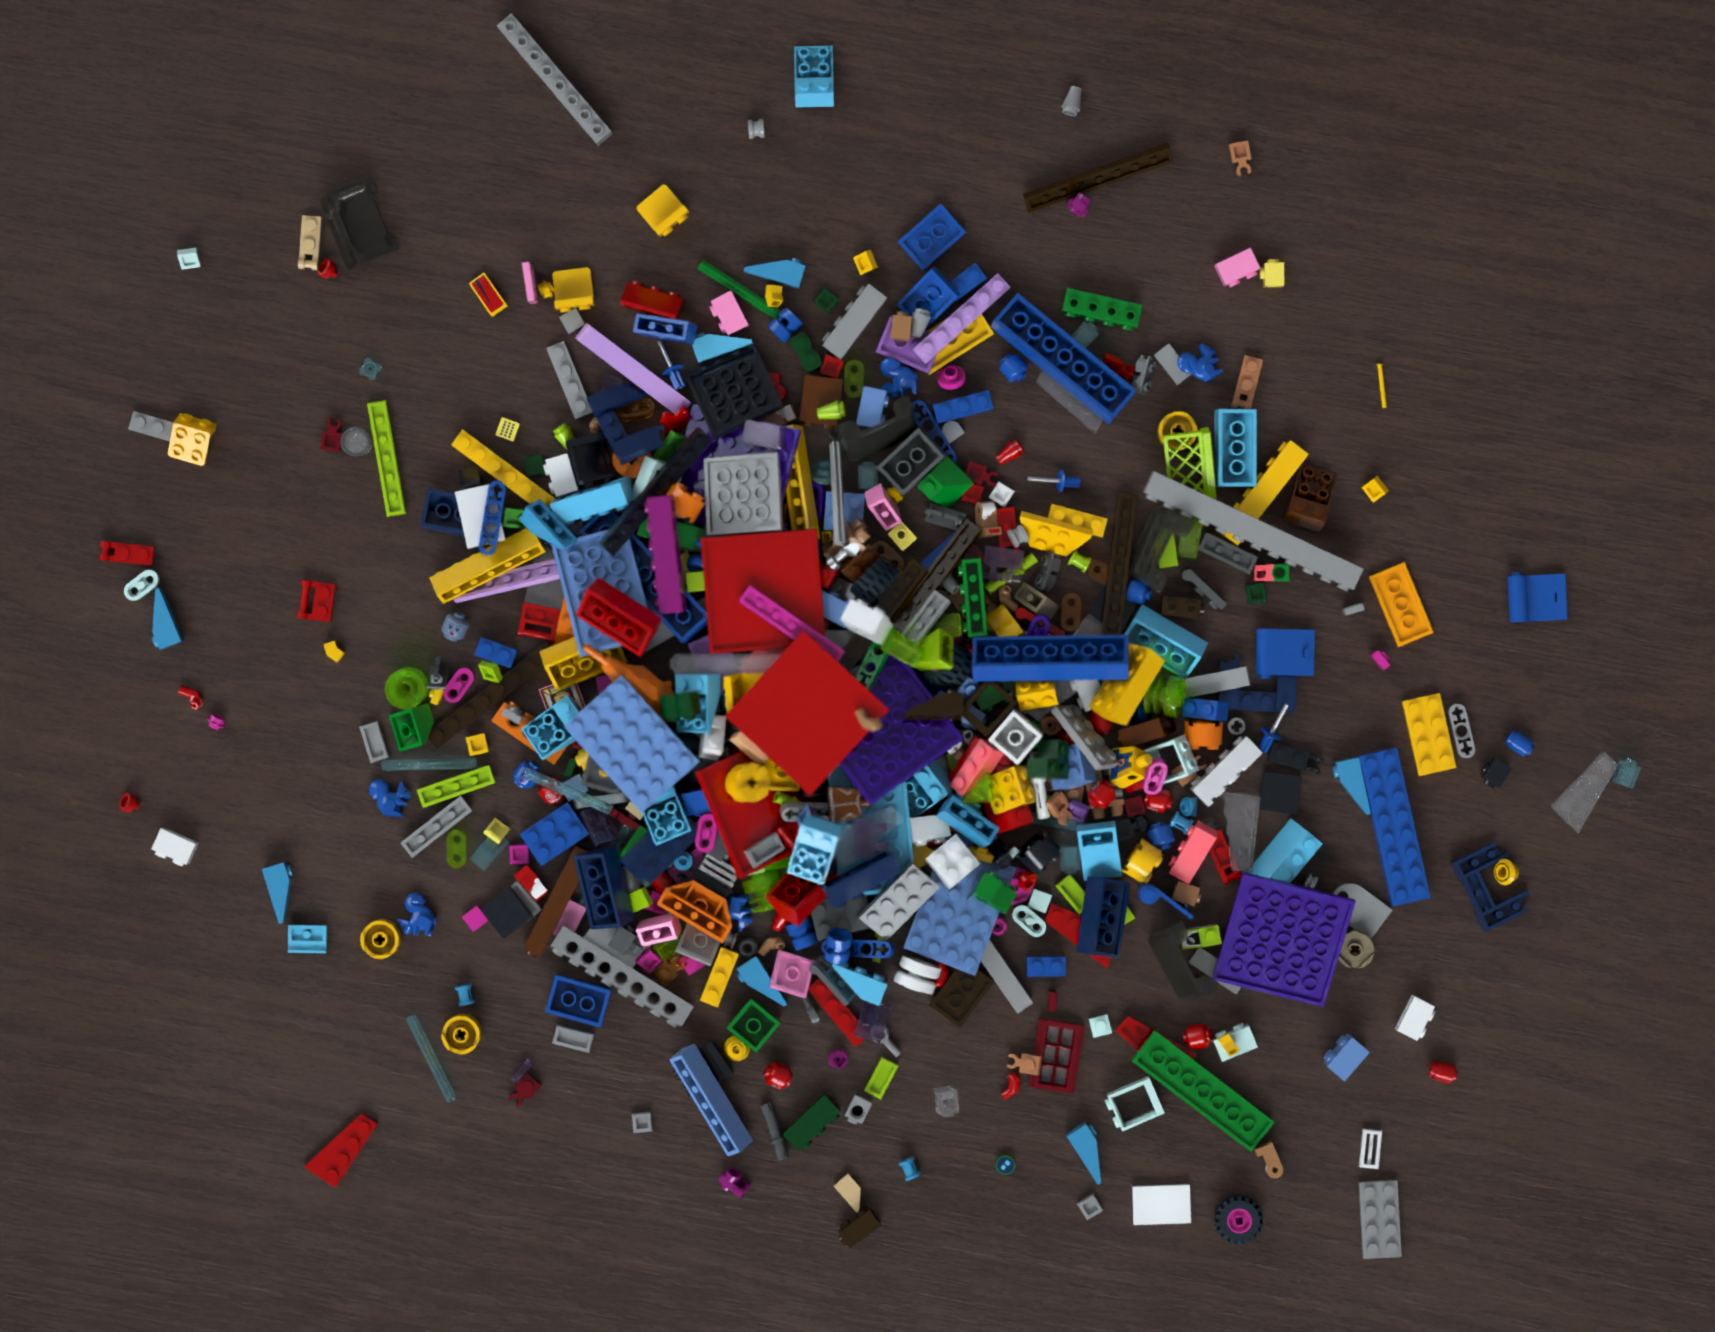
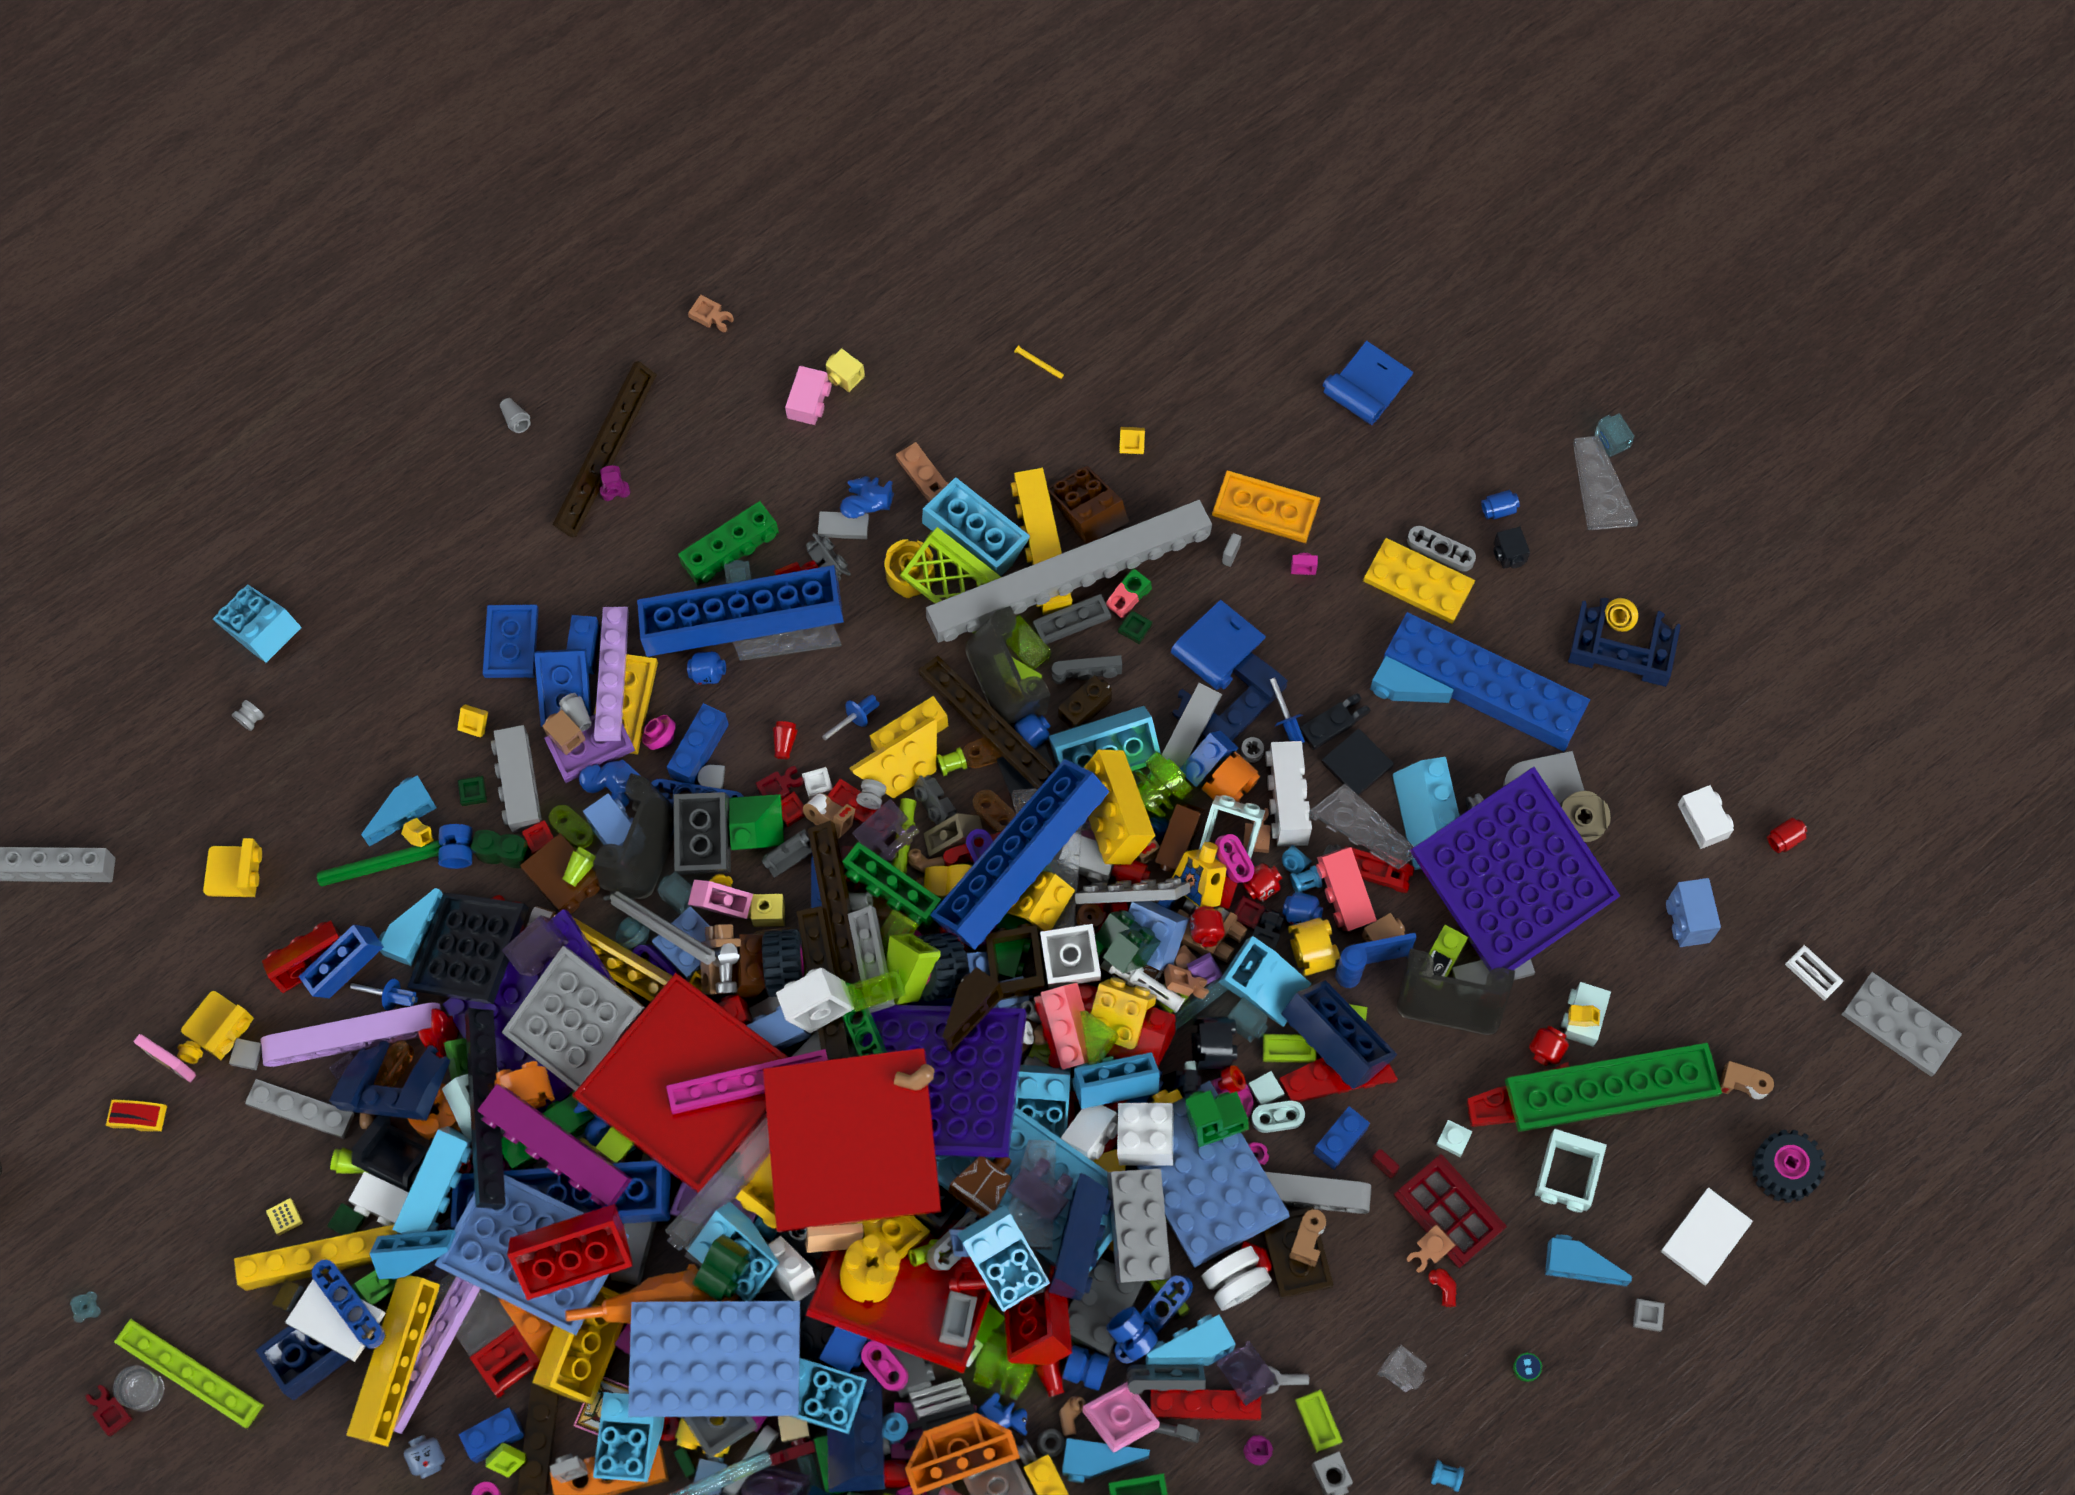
camera: 50 degrees left, 20 degrees down
(729, 314) = (391, 891): bright pink brick -> none
(972, 993) = (1310, 1228): none -> medium nougat leg

